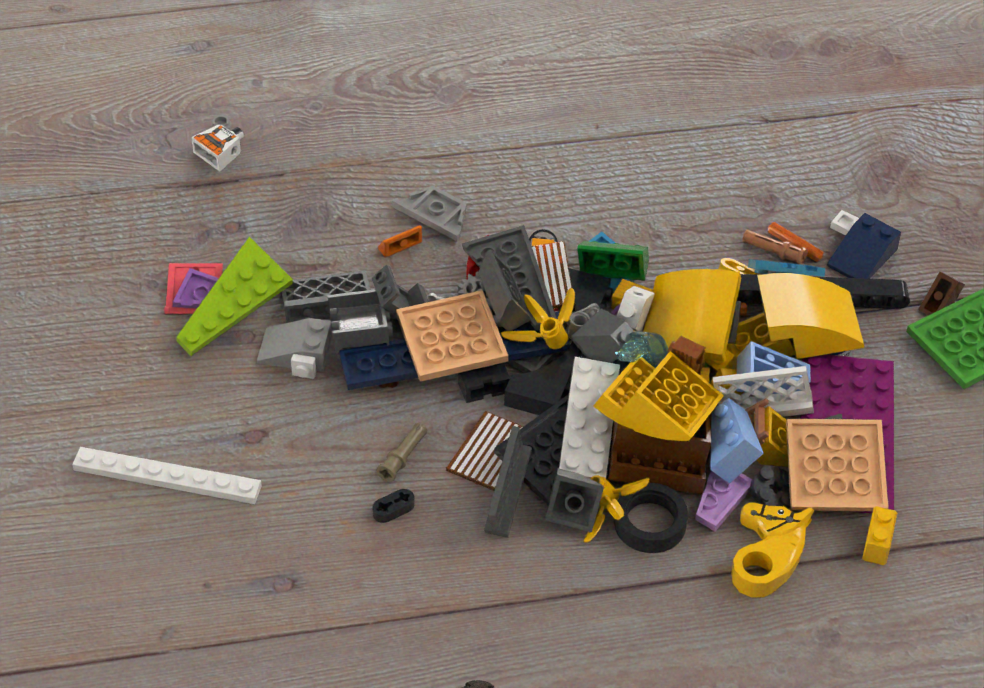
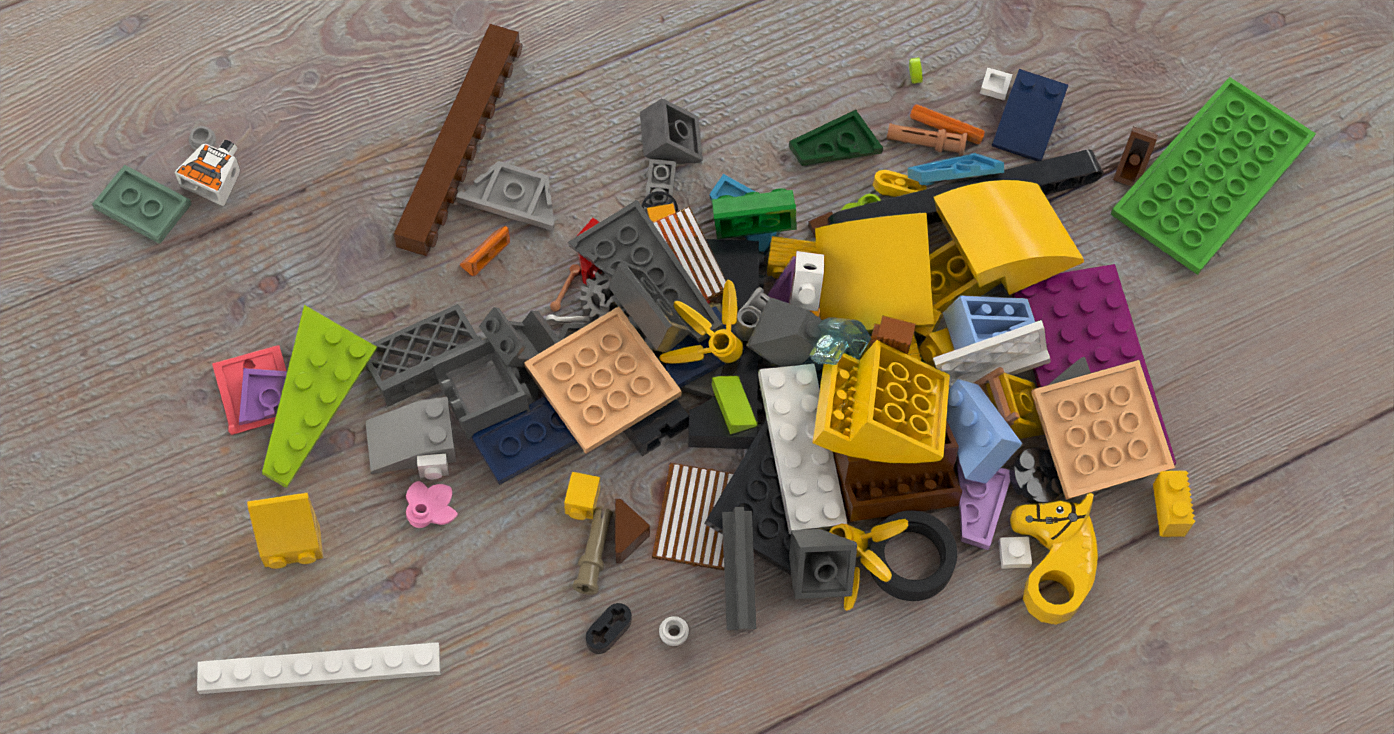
camera: 20 degrees left, 15 degrees up
(161, 156) = (142, 204): none -> sand green tile
(177, 372) = (286, 530): none -> yellow slope
(290, 392) = (430, 501): none -> bright pink plate
(407, 166) = (458, 141): none -> reddish brown brick
(407, 412) = (582, 496): none -> yellow brick
(434, 445) = (630, 530): none -> reddish brown slope
(442, 515) = (677, 623): none -> white plate
(462, 271) = (574, 271): none -> nougat hinge
(547, 377) = (733, 403): none -> lime slope
(555, 223) = (660, 178): none -> light grey slope
(571, 198) = (670, 133): none -> flat silver slope
(701, 231) = (835, 141): none -> dark green wing
(735, 538) = (1015, 552): none -> white plate
(783, 200) = (915, 70): none -> lime tile

